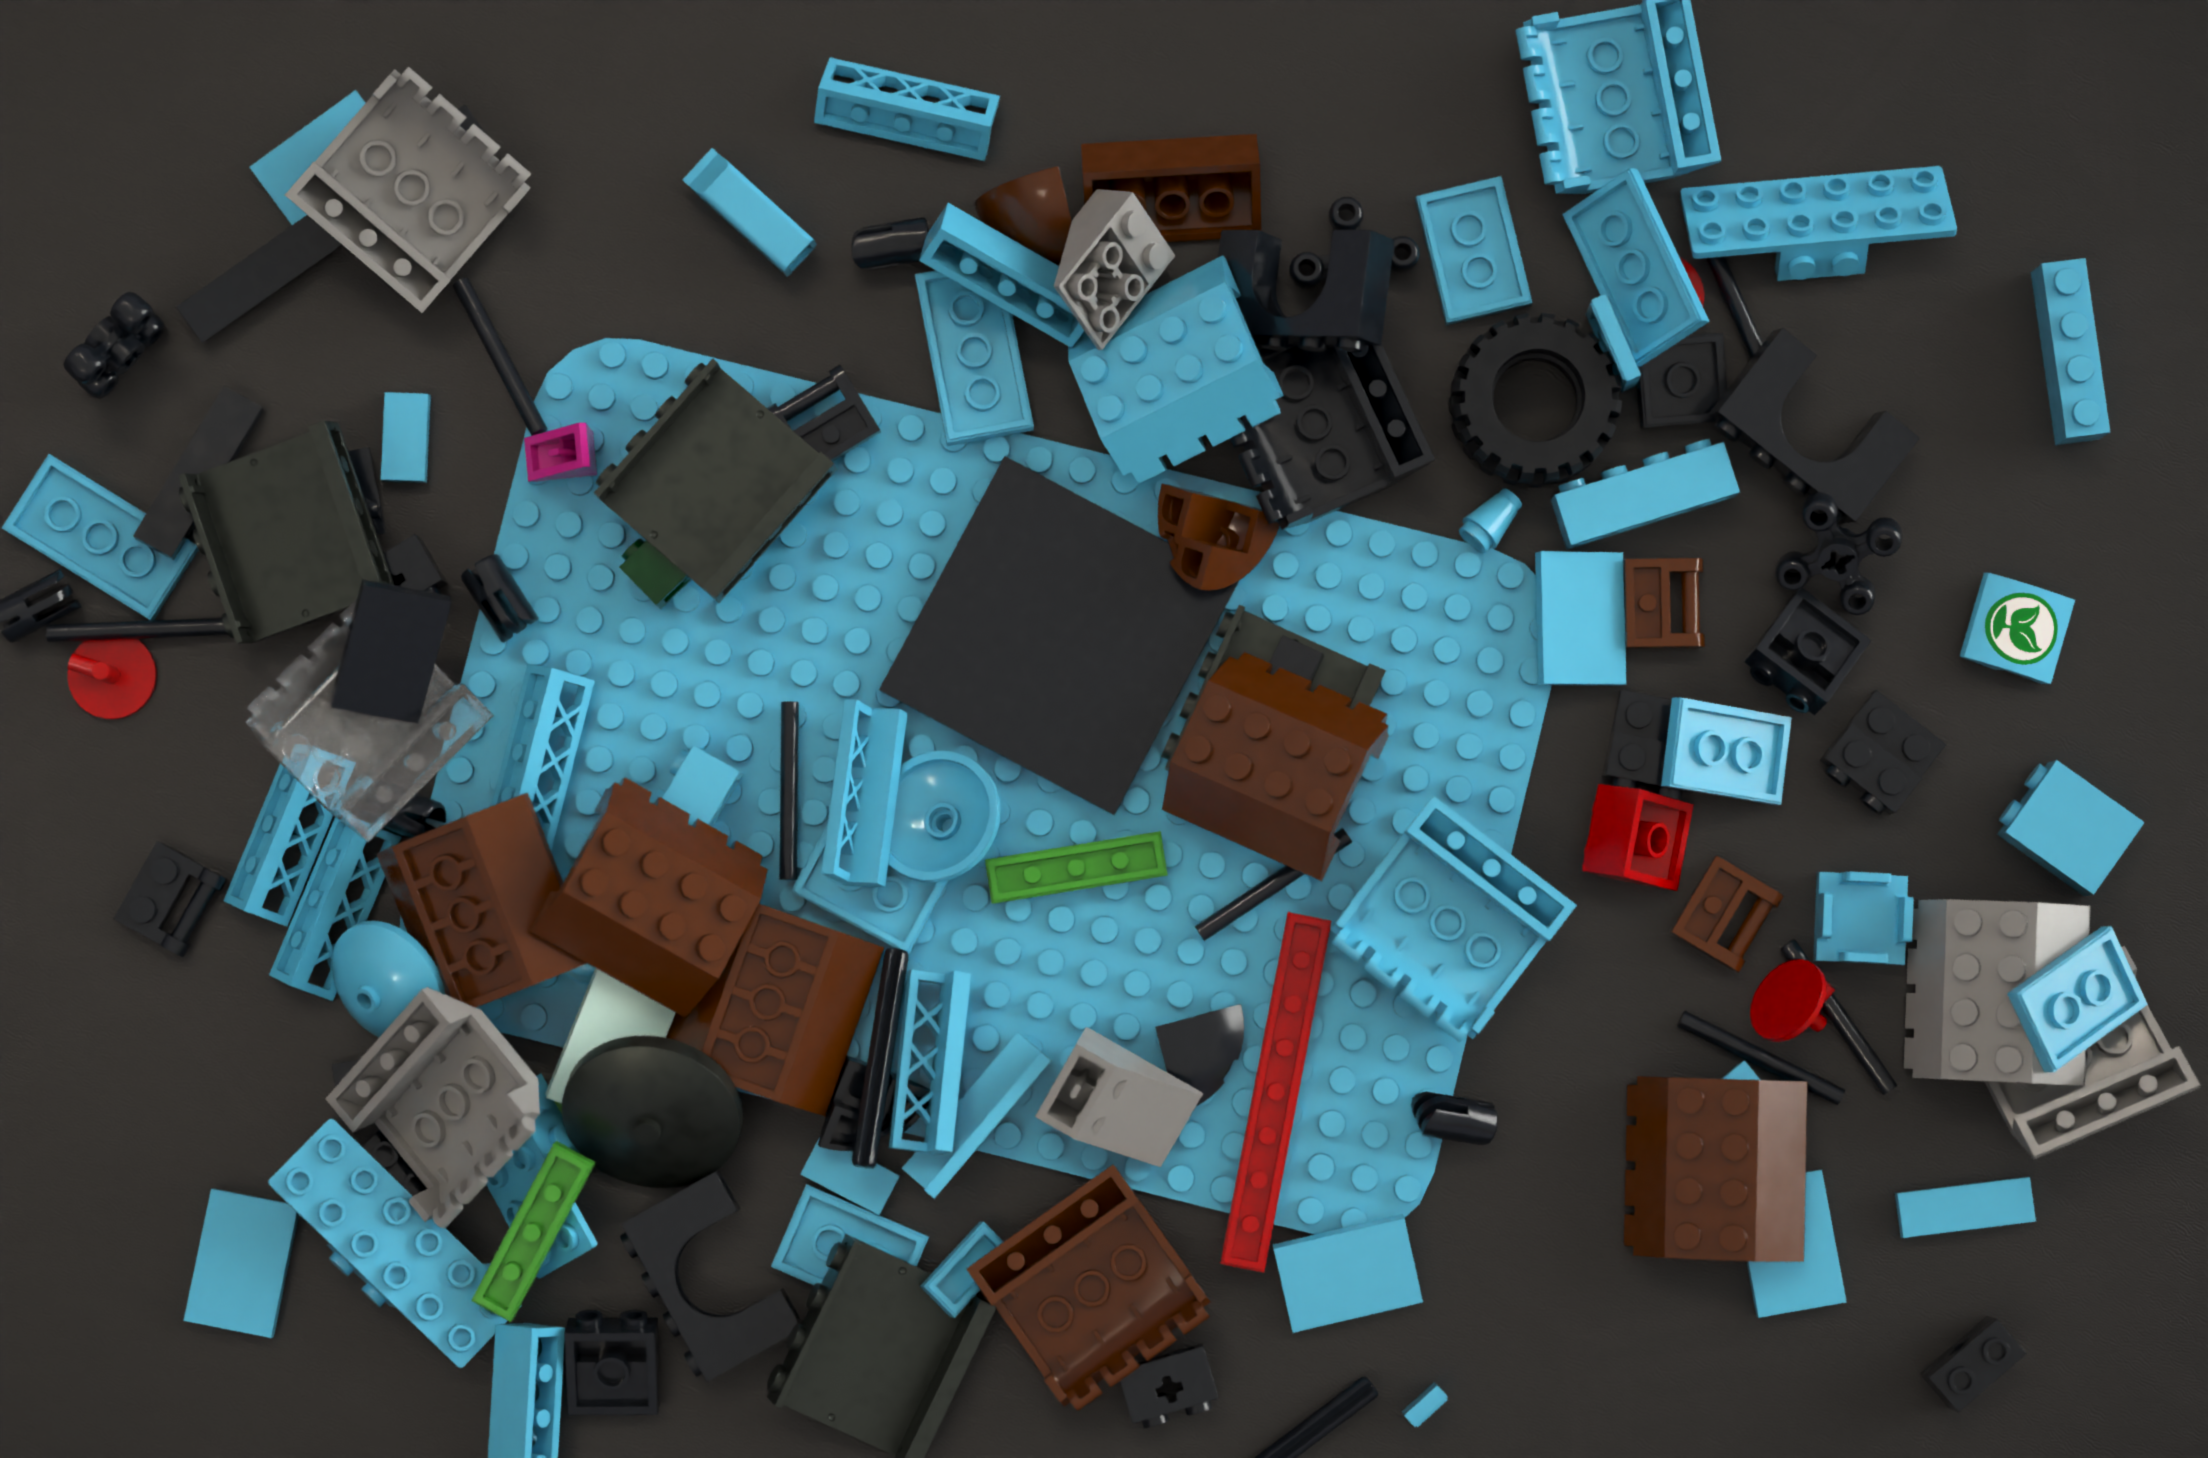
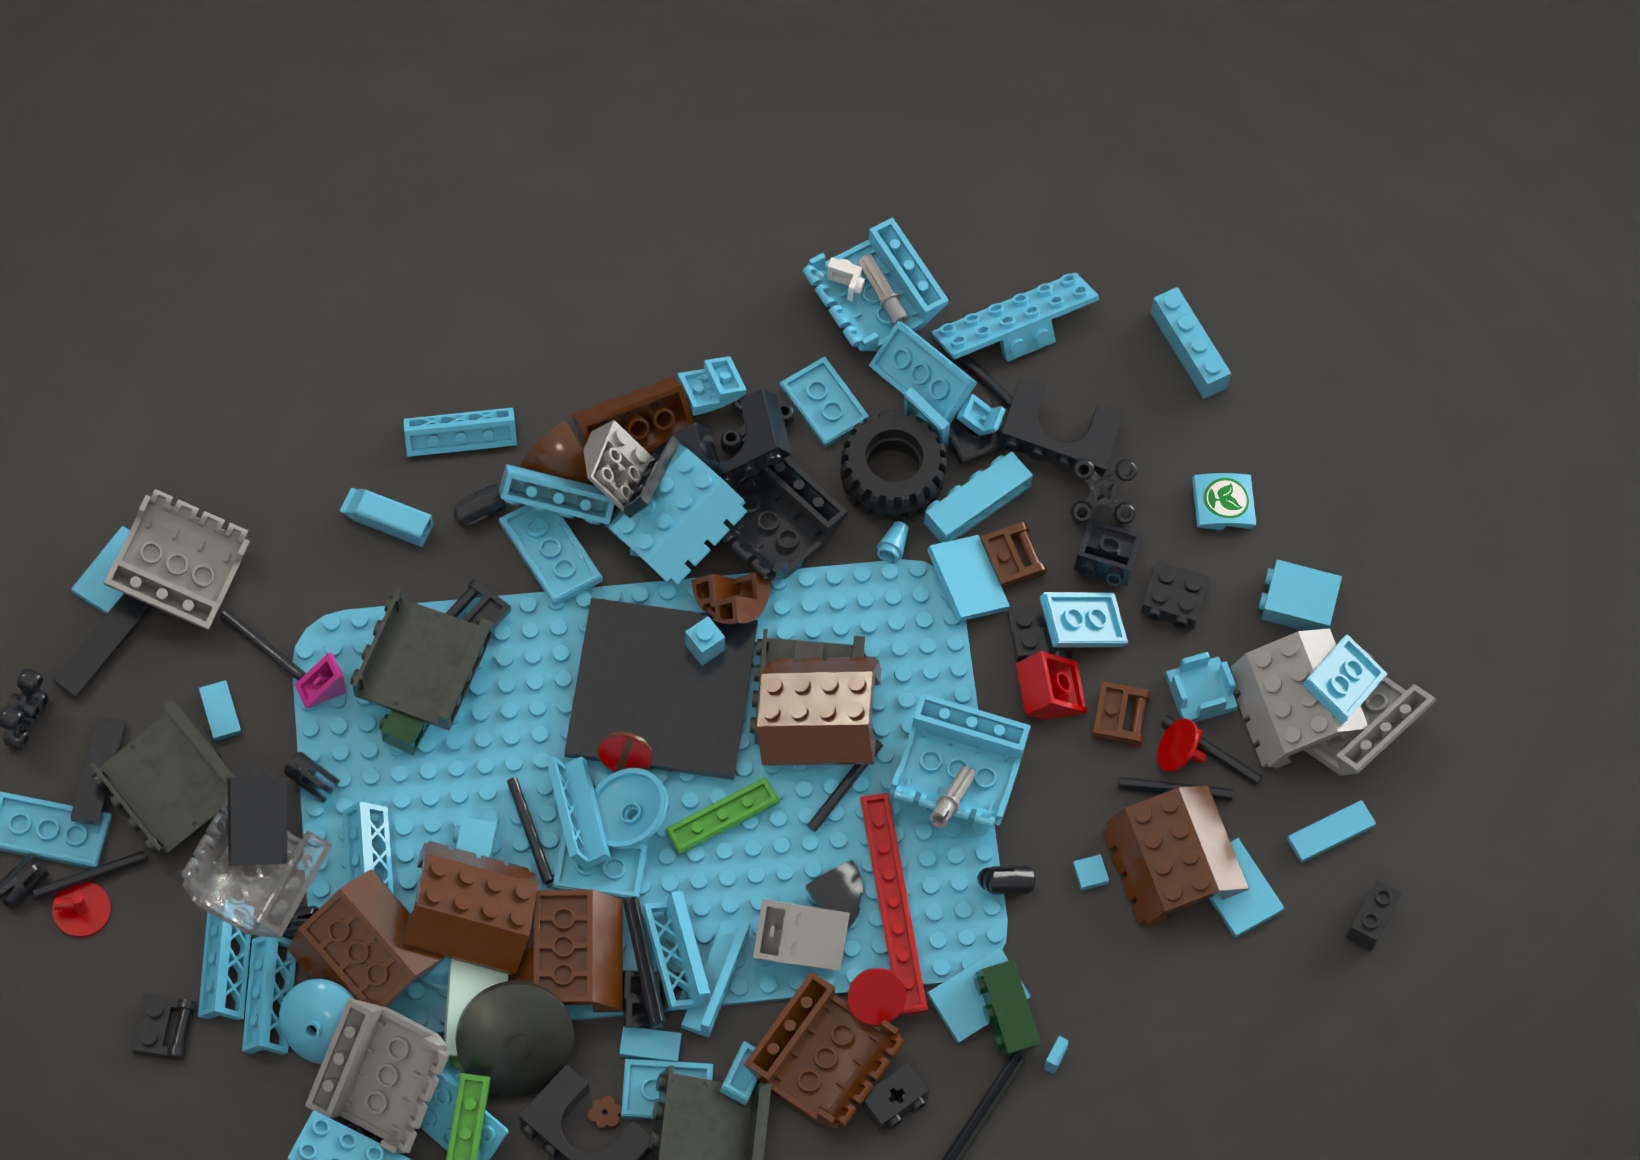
camera: 25 degrees left, 20 degrees down
(736, 1250) = (608, 1105): none -> reddish brown plant
(965, 728) = (624, 751): none -> red piece
(1145, 593) = (705, 640): none -> medium azure brick
(1156, 304) = (651, 476): none -> black tile
(1194, 1234) = (876, 996): none -> red shield
(1310, 169) = (712, 386): none -> medium azure slope
(1378, 1314) = (1007, 1008): none -> dark green brick
(1406, 988) = (949, 802): none -> light grey axle
(1581, 53) = (846, 273): none -> white bracket
(1584, 1143) = (1090, 872): none -> medium azure tile
(1629, 102) = (888, 298): none -> light grey axle
(1698, 369) = (980, 416): none -> medium azure bracket

